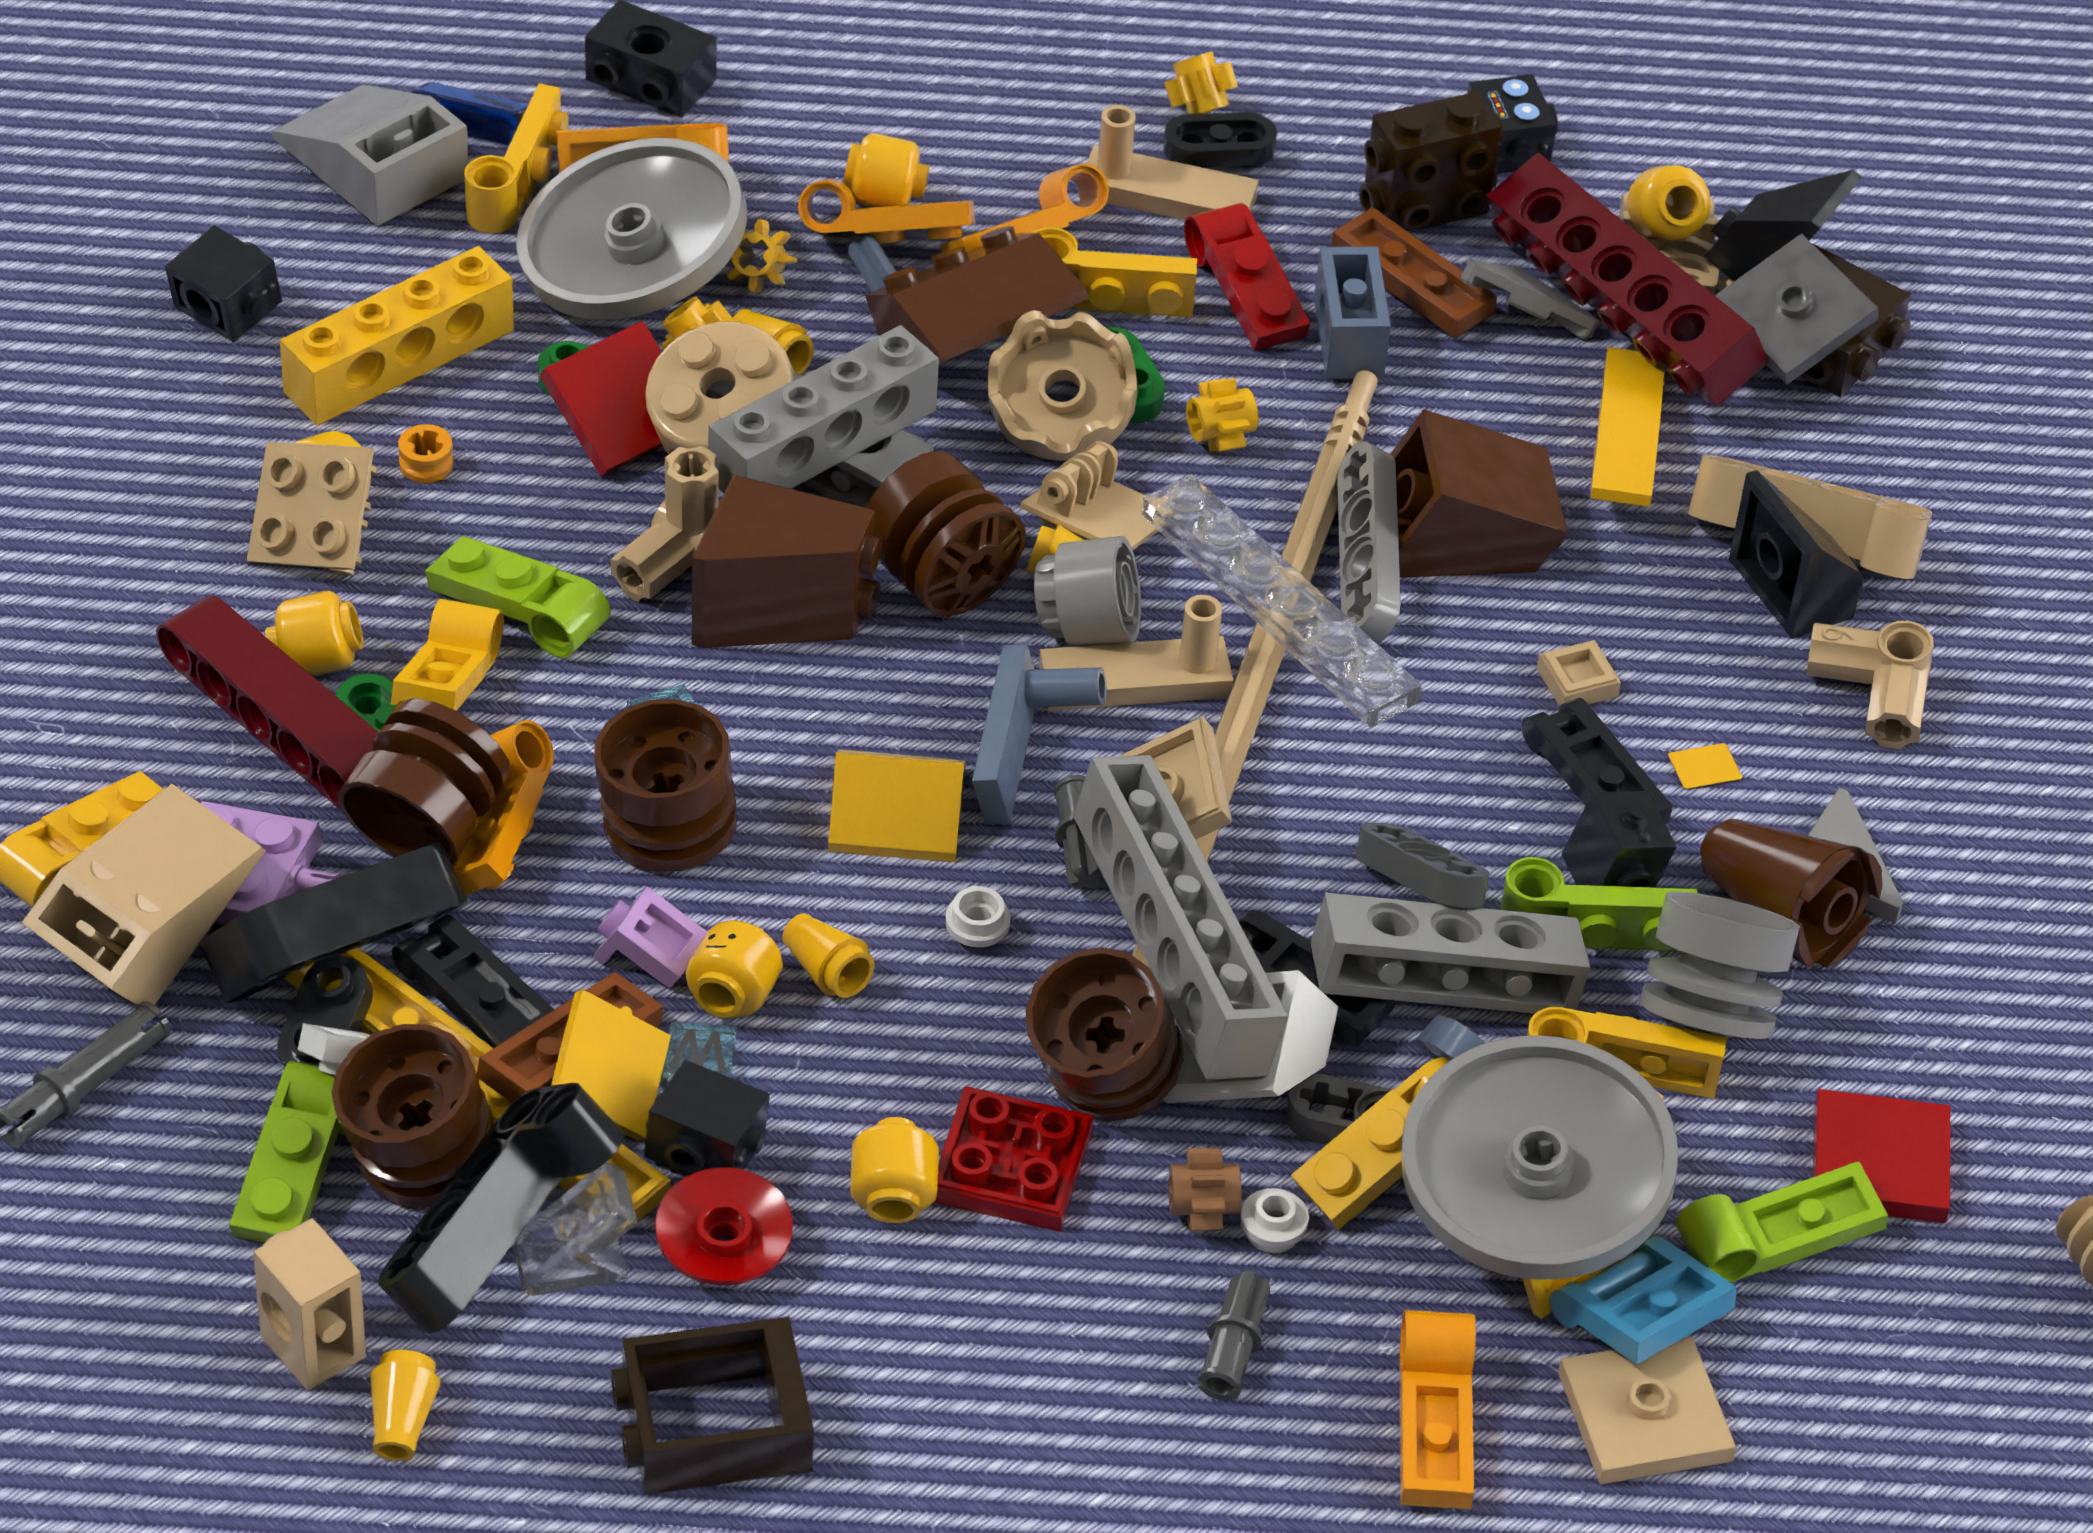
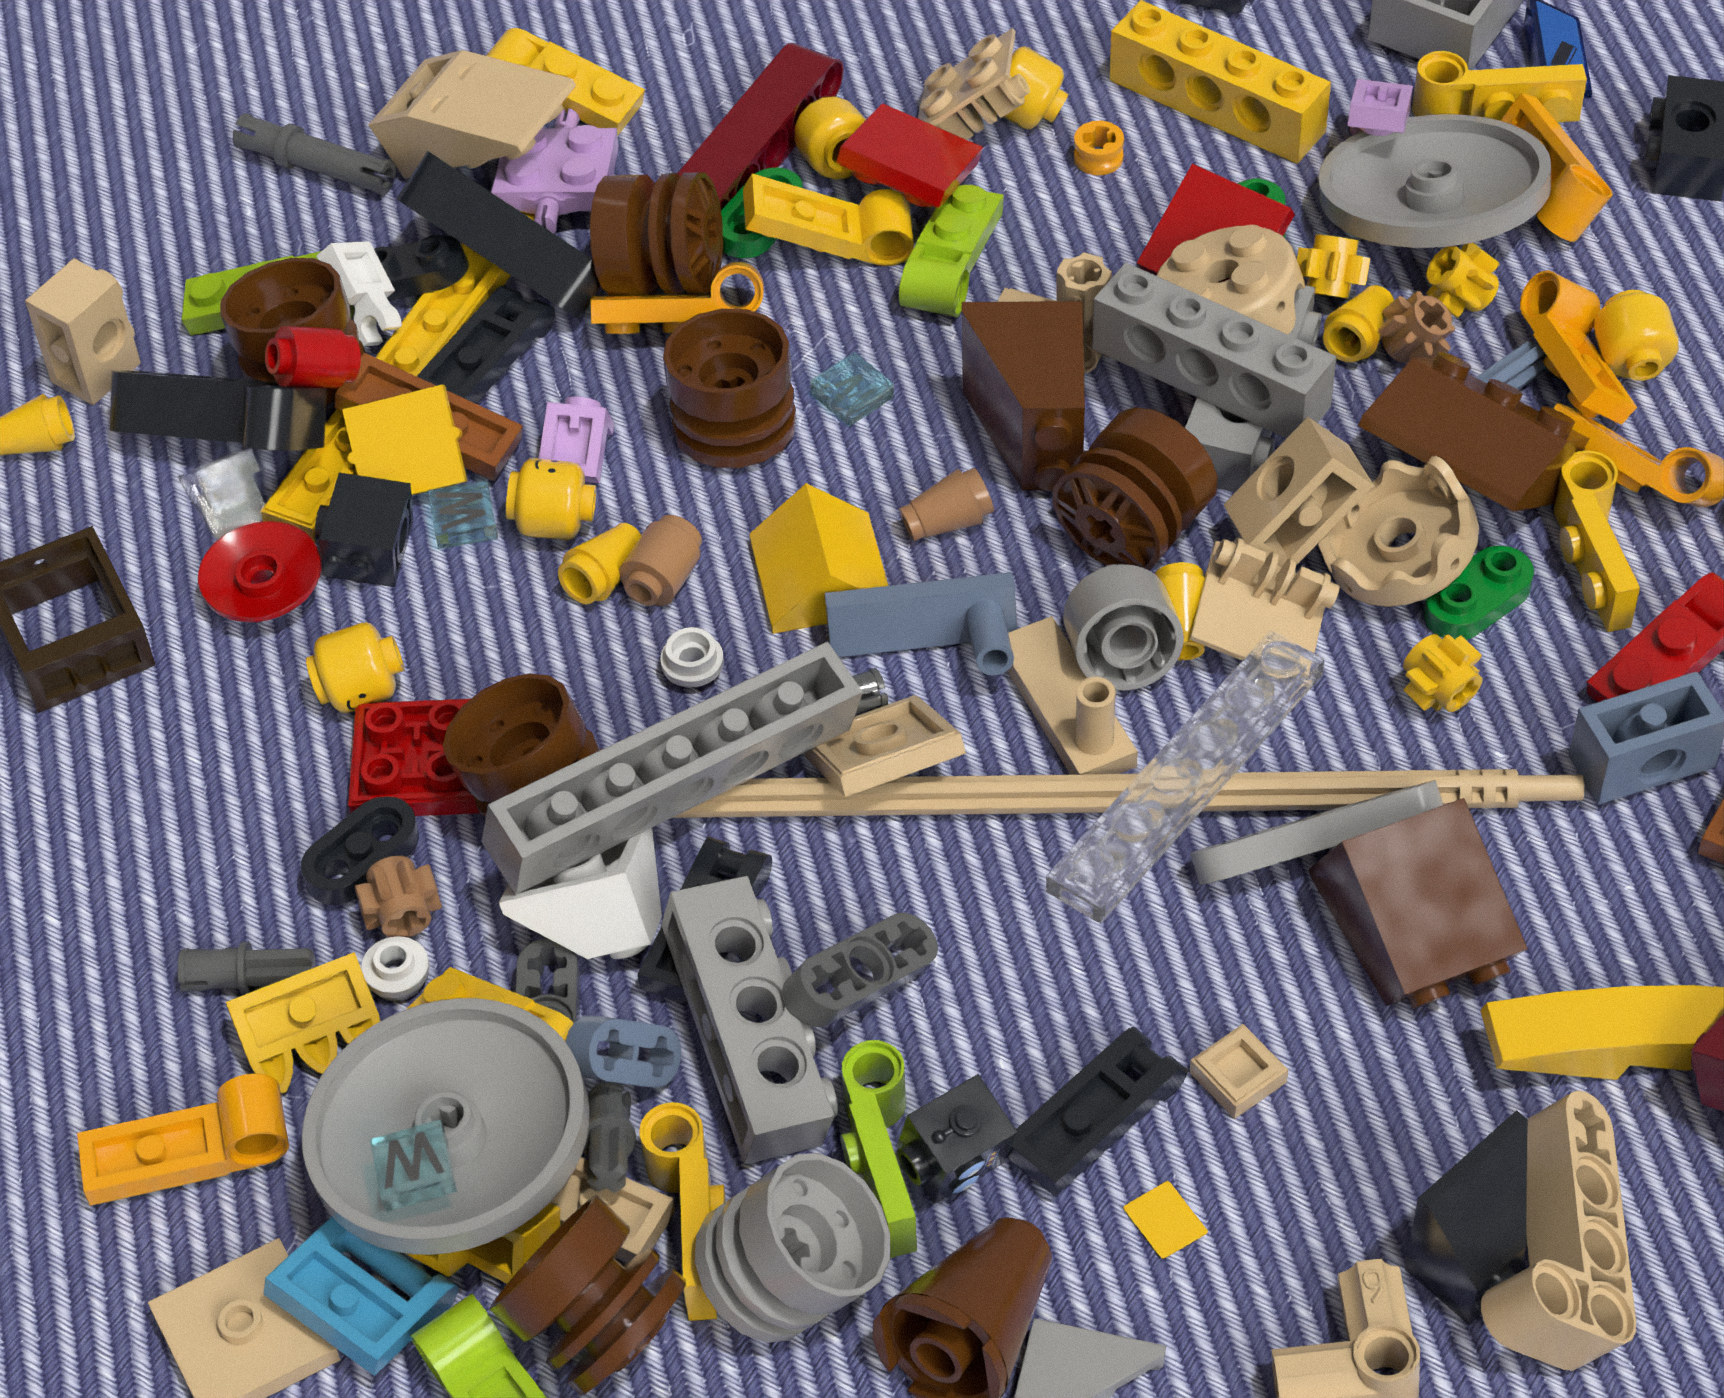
camera: 80 degrees right, 5 degrees up
(406, 570) = (909, 156): none -> red tile
(511, 1075) = (313, 357): none -> red brick
(516, 231) = (1379, 107): none -> lavender bracket
(809, 301) = (1416, 327): none -> medium nougat gear
(851, 903) = (661, 561): none -> medium nougat brick
(869, 681) = (948, 505): none -> medium nougat cone
(1011, 388) = (1298, 493): none -> tan brick
(1129, 1221) = (355, 847): none -> black plate
(1316, 1296) = (304, 1017): none -> yellow plate
(1601, 1168) = (413, 1165): none -> clear light blue tile
(1737, 1108) = (589, 1296): none -> reddish brown wheel

